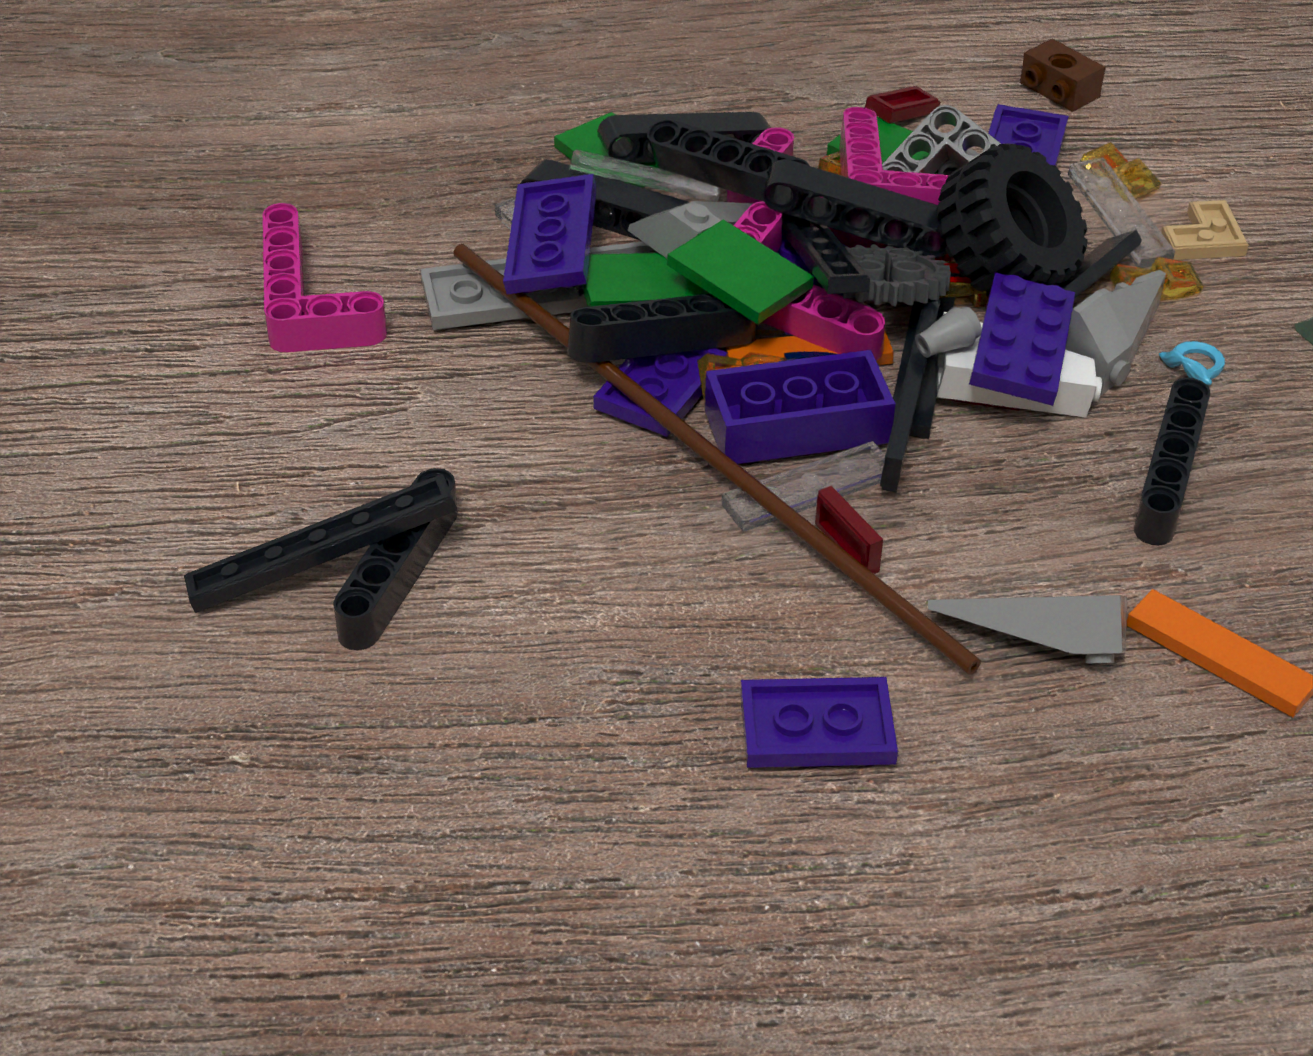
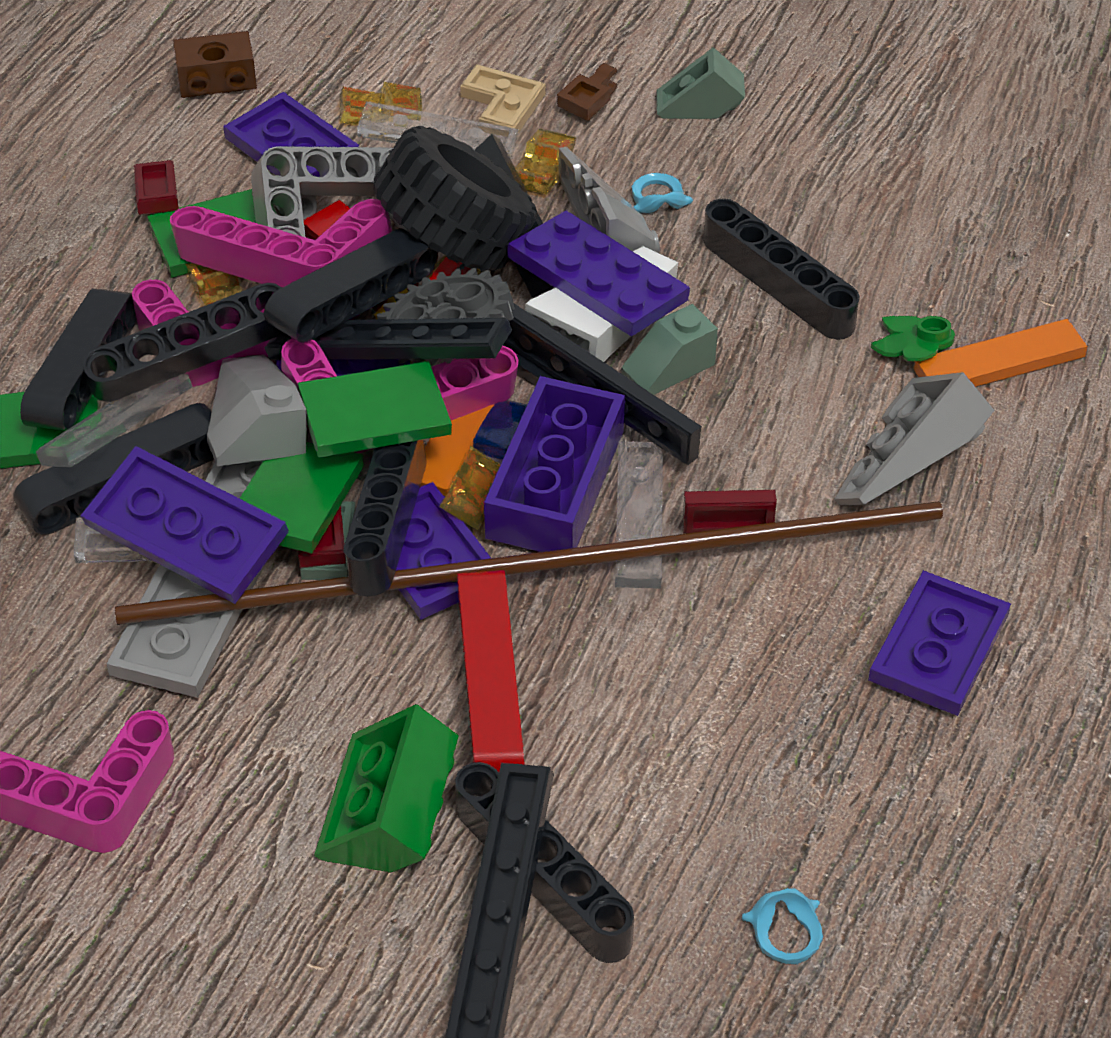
camera: 60 degrees left, 5 degrees up
(405, 451) = (389, 792): none -> green slope
(434, 715) = (799, 905): none -> medium azure piece
(554, 456) = (490, 668): none -> red beam
(952, 331) = (573, 309): light grey cone -> none
(1003, 431) = (673, 350): none -> sand green slope
(1189, 582) = (914, 337): none -> green plate
(1264, 271) = (588, 95): none -> reddish brown plate

